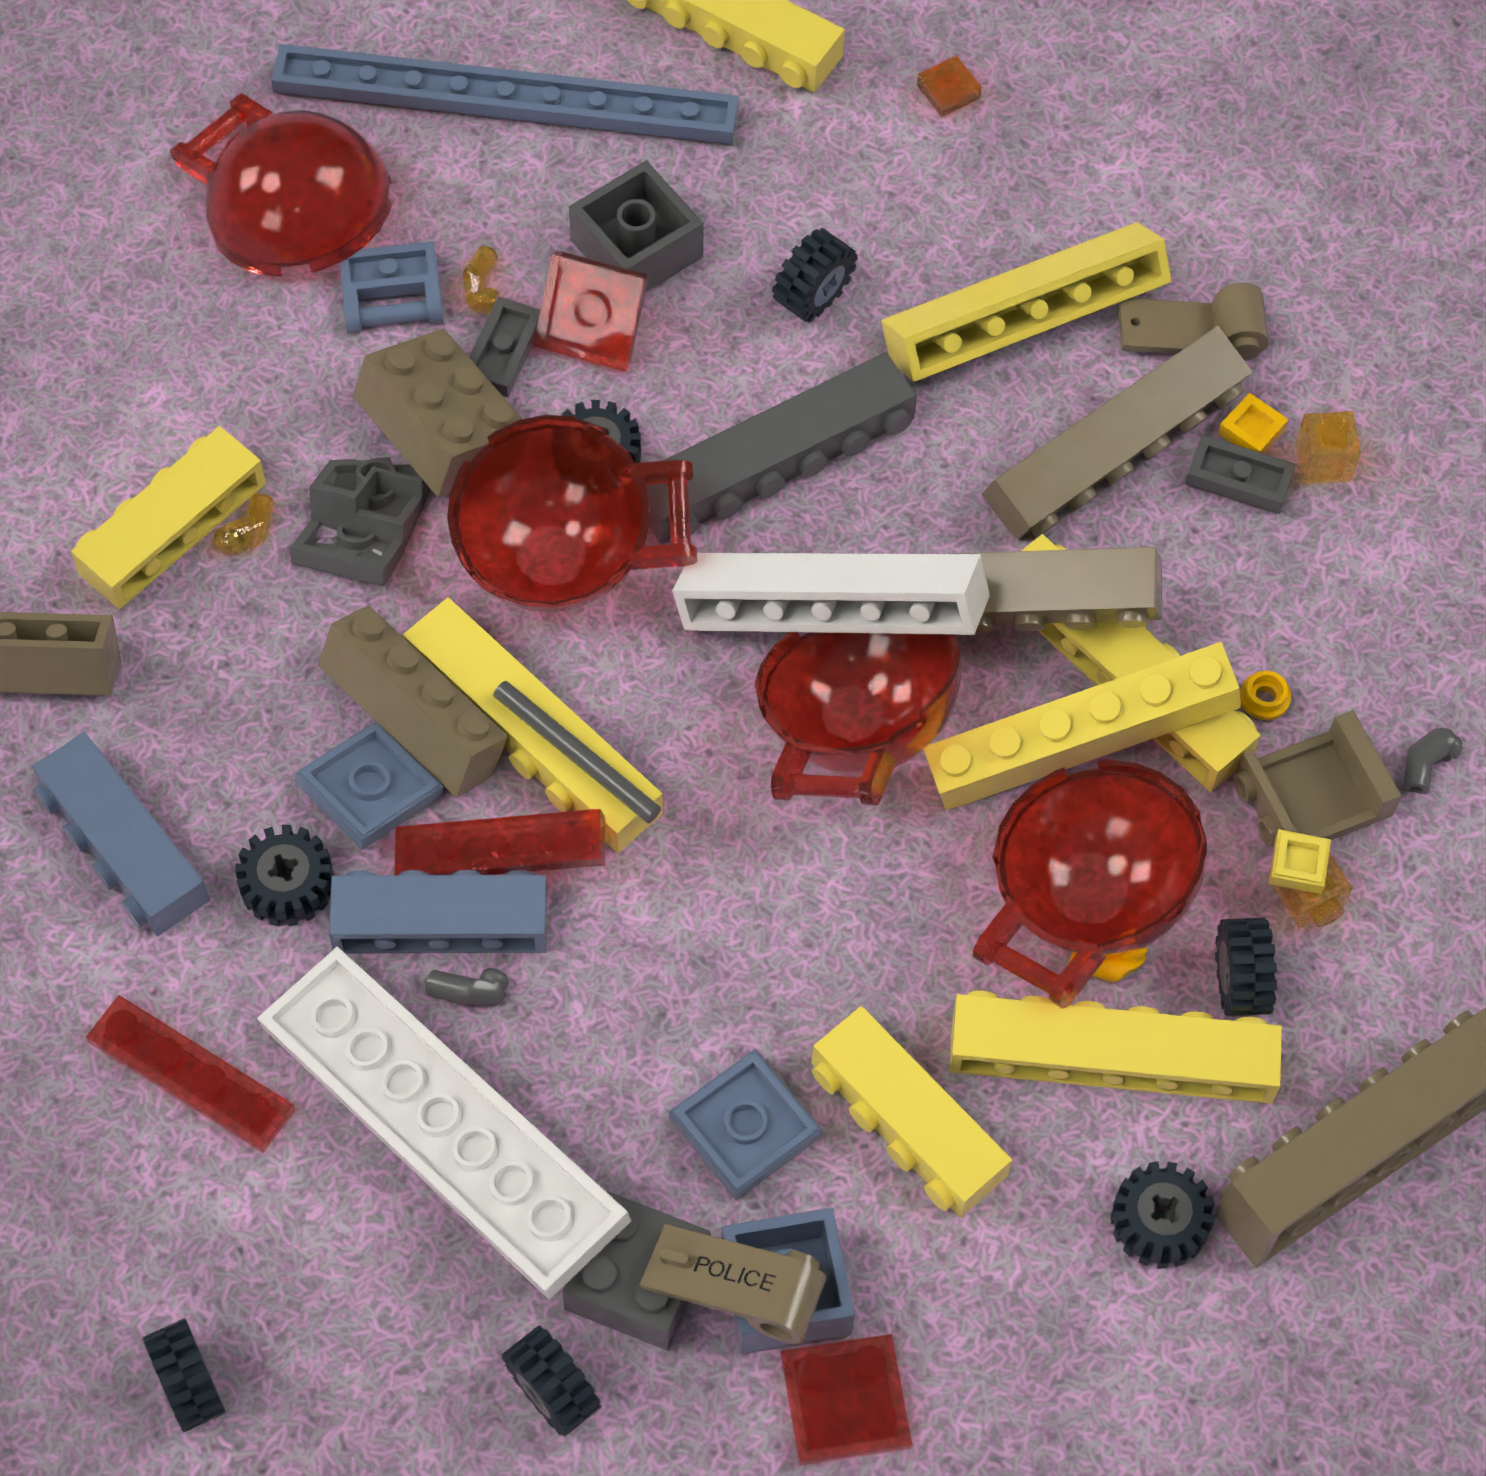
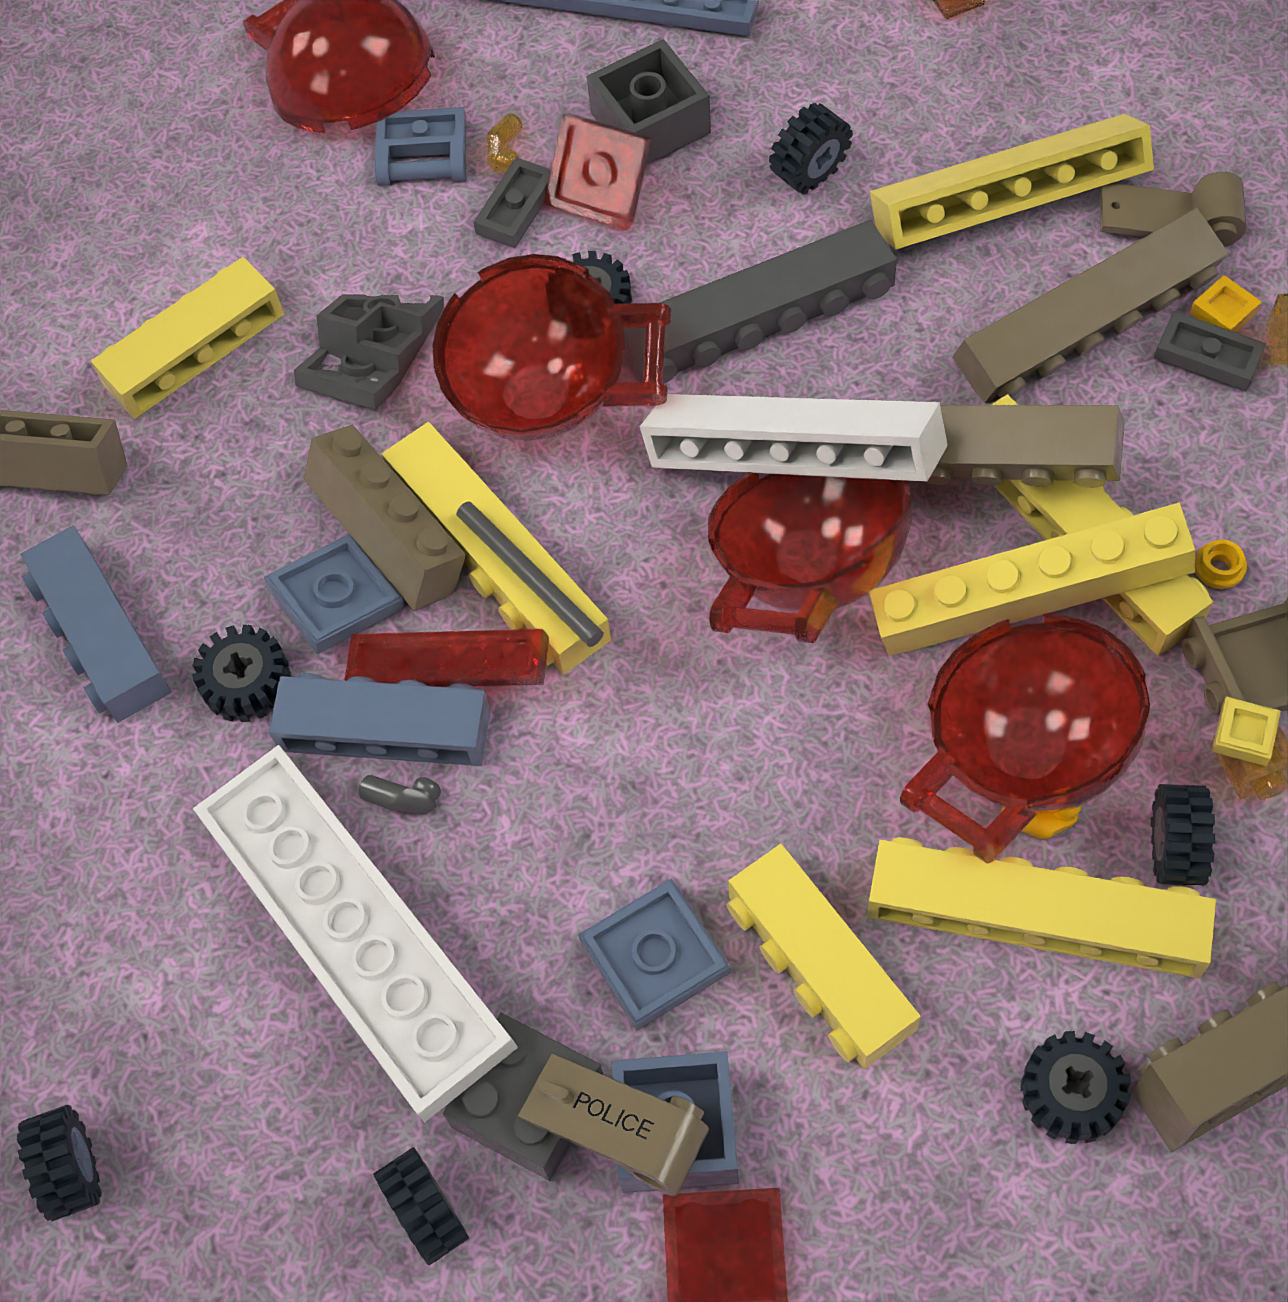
camera: 15 degrees right, 0 degrees up
(190, 1073) = (126, 858): clear red plate -> none
(246, 531) = (260, 354): clear yellow arm -> none
(432, 405) = (435, 243): dark tan brick -> none

